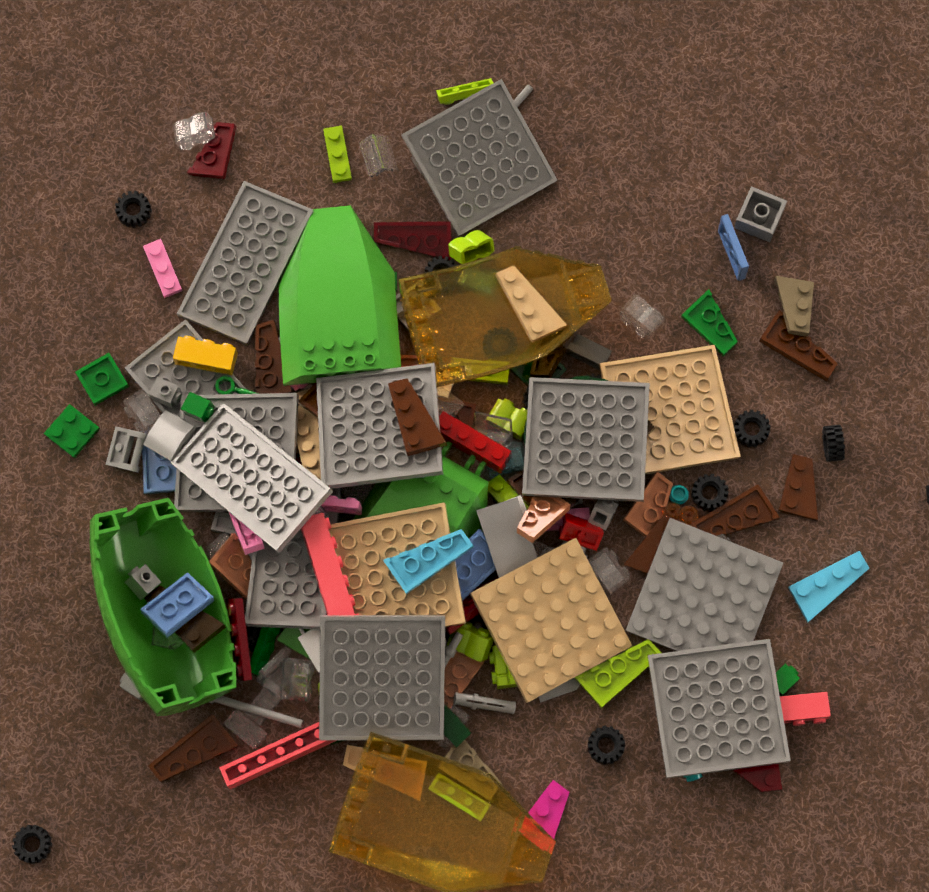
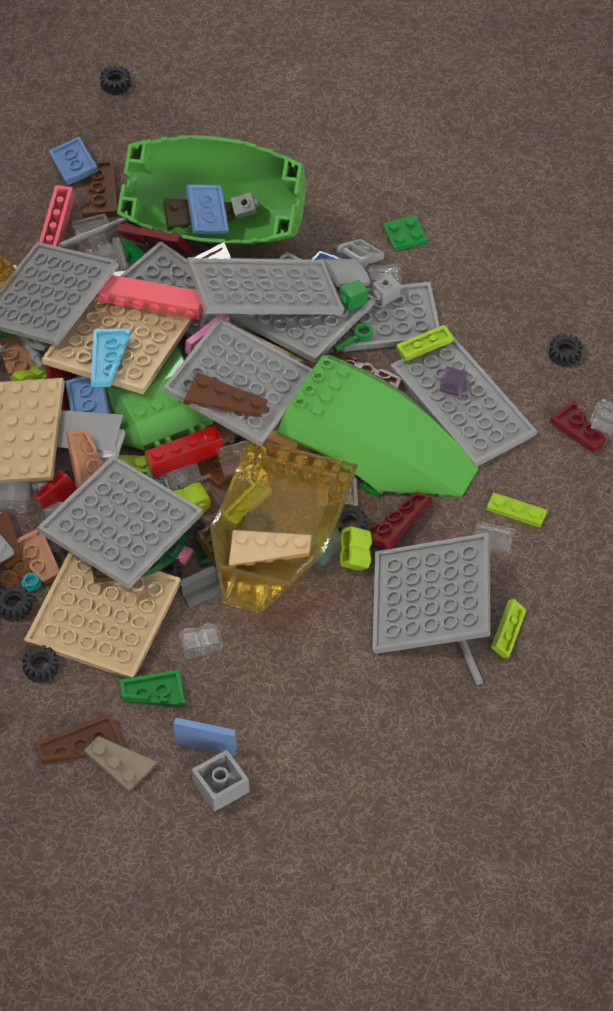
camera: 120 degrees right, 20 degrees down
(102, 379) = (432, 267): green plate -> none
(162, 268) = (499, 347): bright pink plate -> none
(172, 805) = (73, 161): none -> medium blue tile
(205, 355) = (397, 328): yellow brick -> none
(207, 323) = (424, 343): none -> lime plate
(238, 271) = (454, 381): none -> clear purple brick

